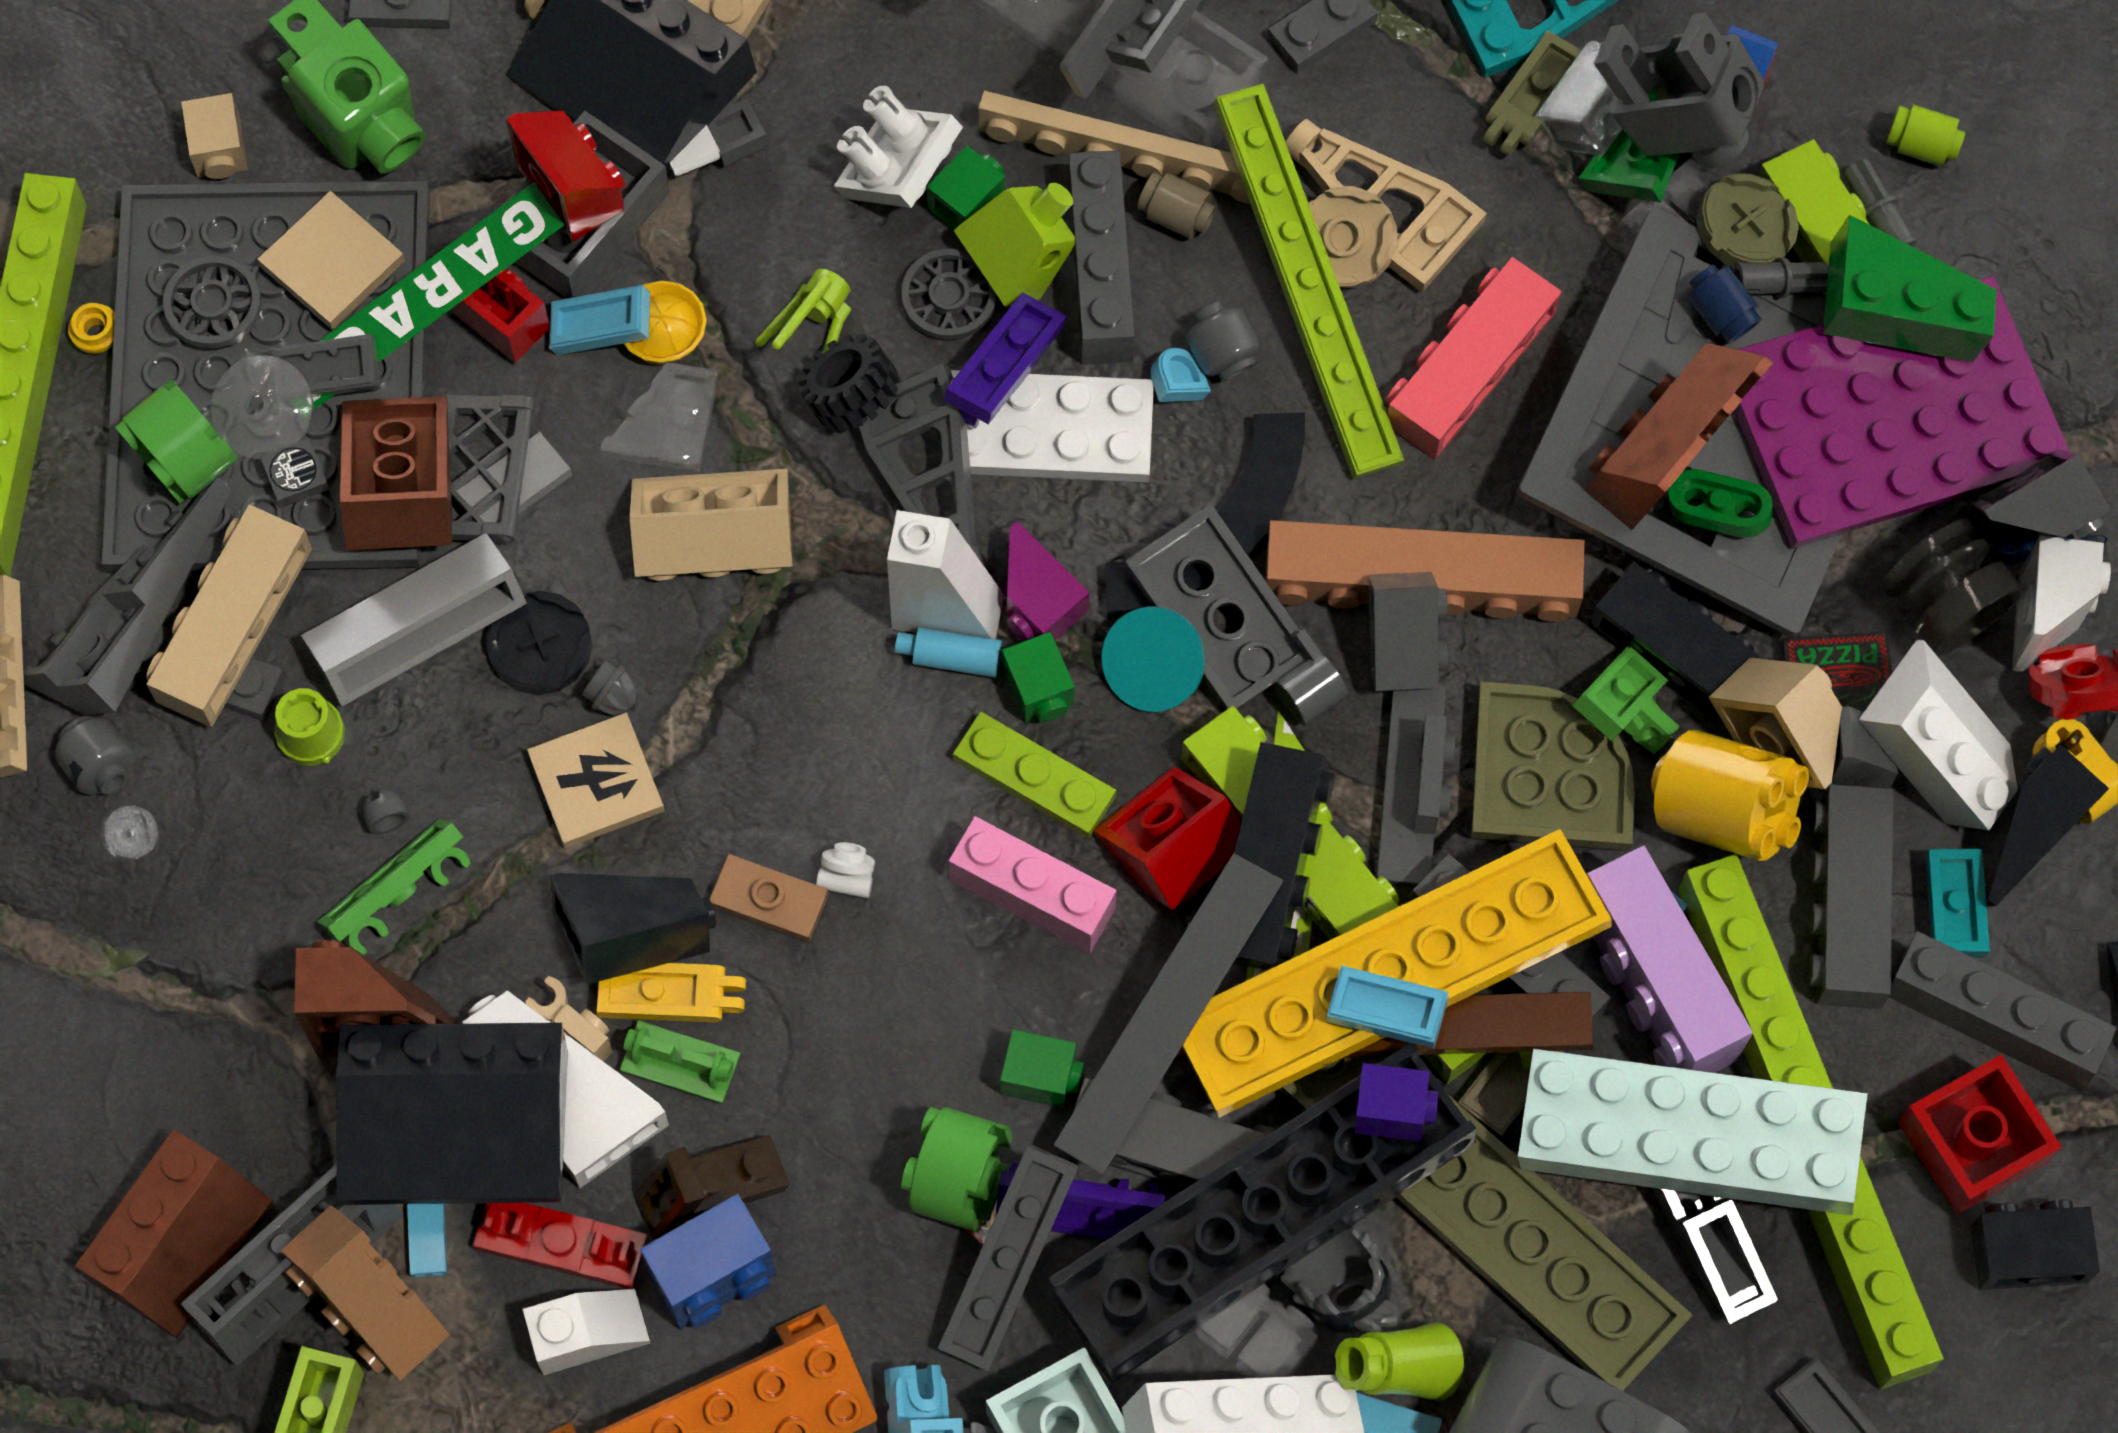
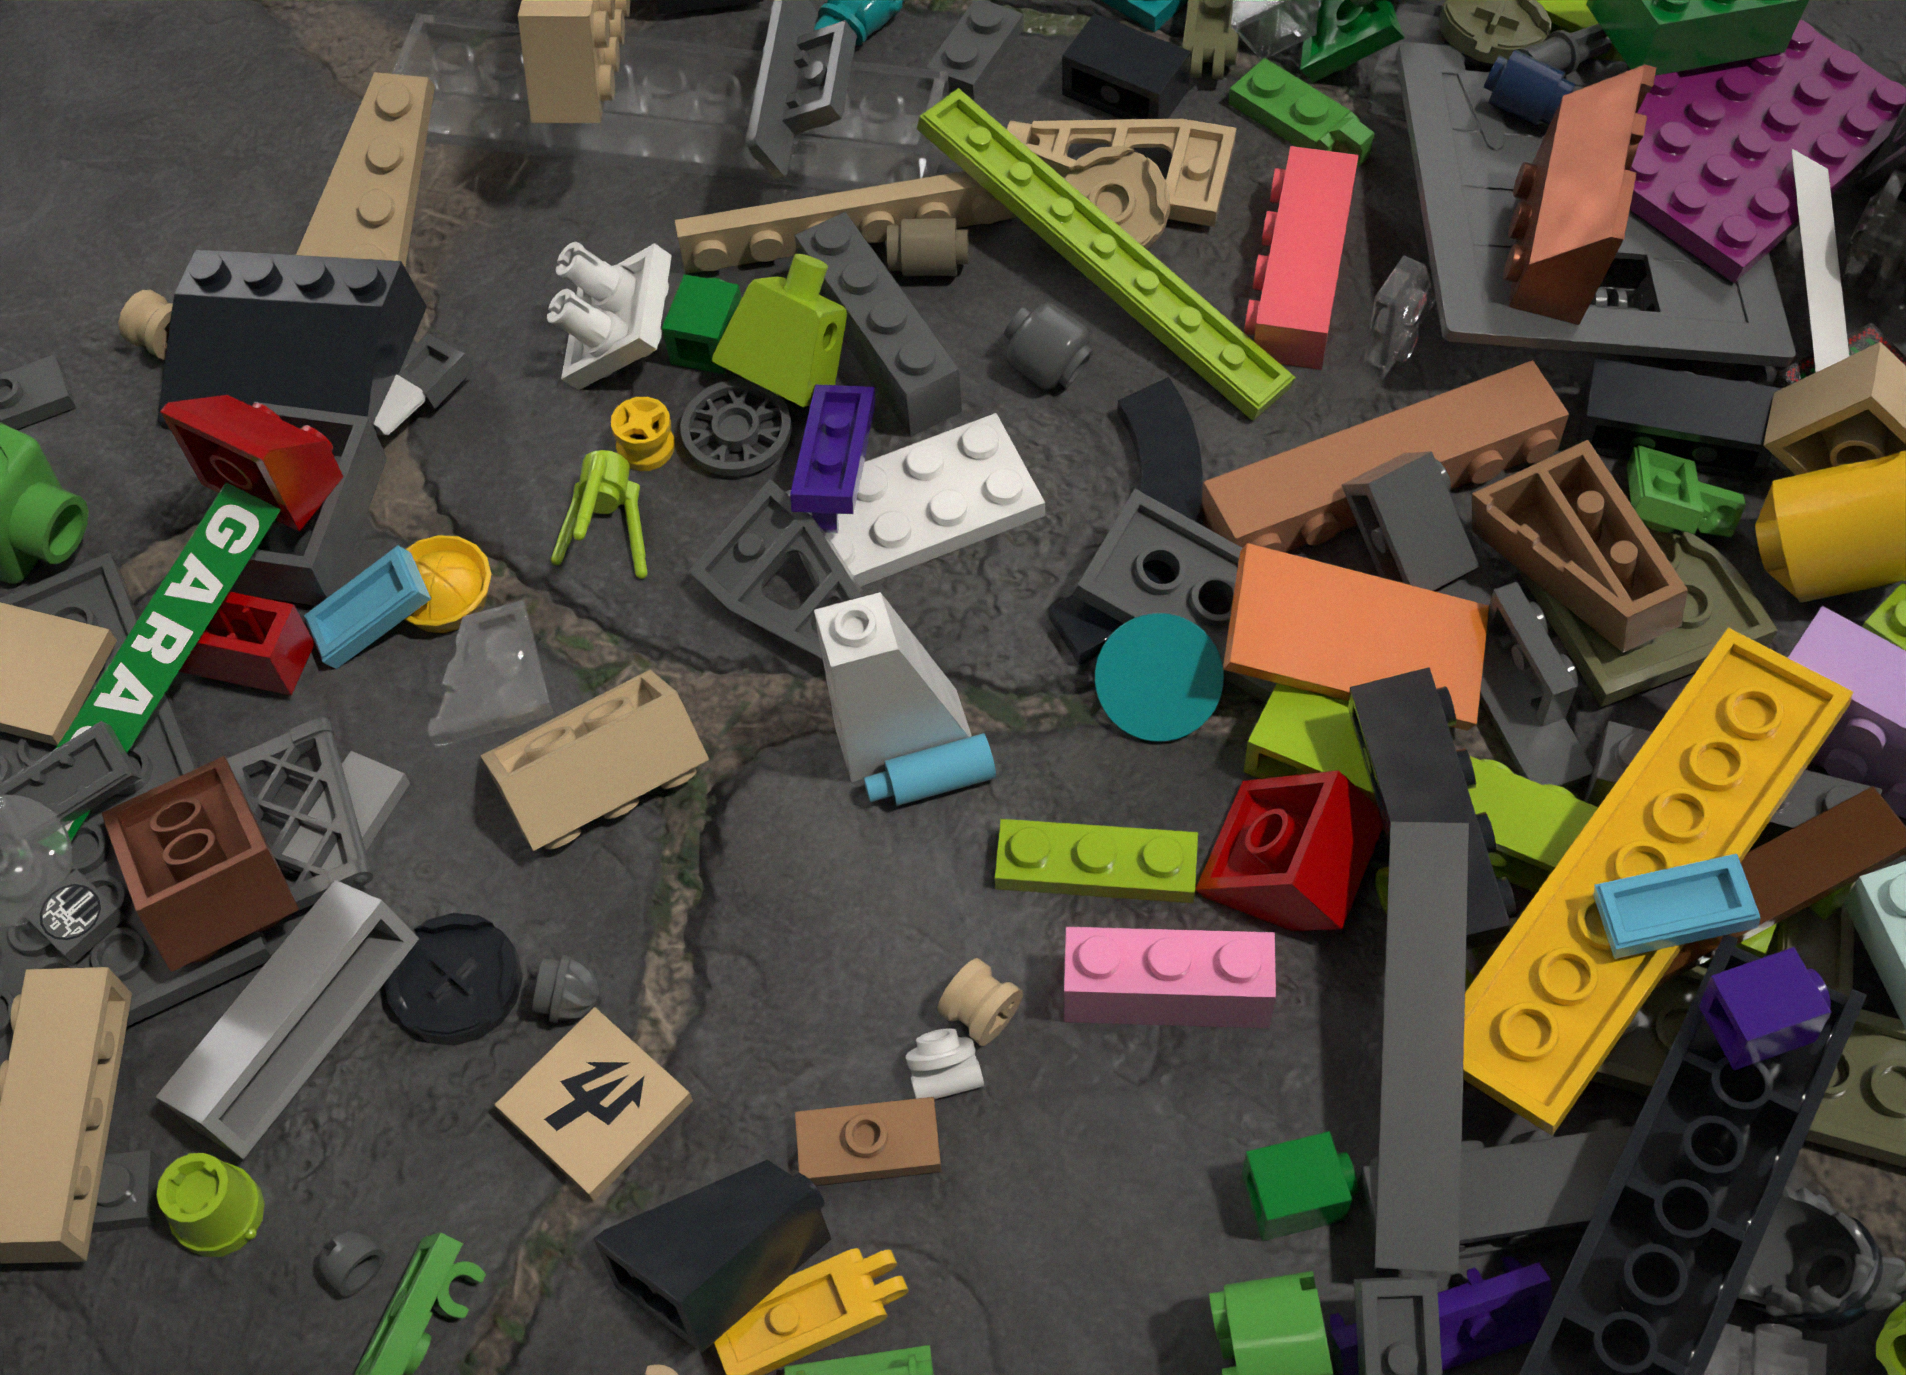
camera: 20 degrees left, 10 degrees down
(848, 382) = (676, 546): black tyre -> none
(873, 254) = (646, 418): none -> yellow wheel
(894, 838) = (980, 1001): none -> tan wheel
(1038, 678) = (1046, 754): green brick -> none
(1040, 590) = (994, 663): magenta slope -> none
(1178, 377) = (1020, 400): medium azure tile -> none
(1307, 699) = (1345, 628): none -> orange tile
(1429, 114) = (1125, 71): none -> black brick
(1503, 451) = (1397, 316): none -> clear wing
(1516, 709) = (1583, 545): none -> medium nougat wedge
(1554, 218) = (1299, 112): none -> bright green hinge
(1722, 502) = (1655, 264): green plate -> none
(1867, 569) = (1820, 262): none -> white sticker

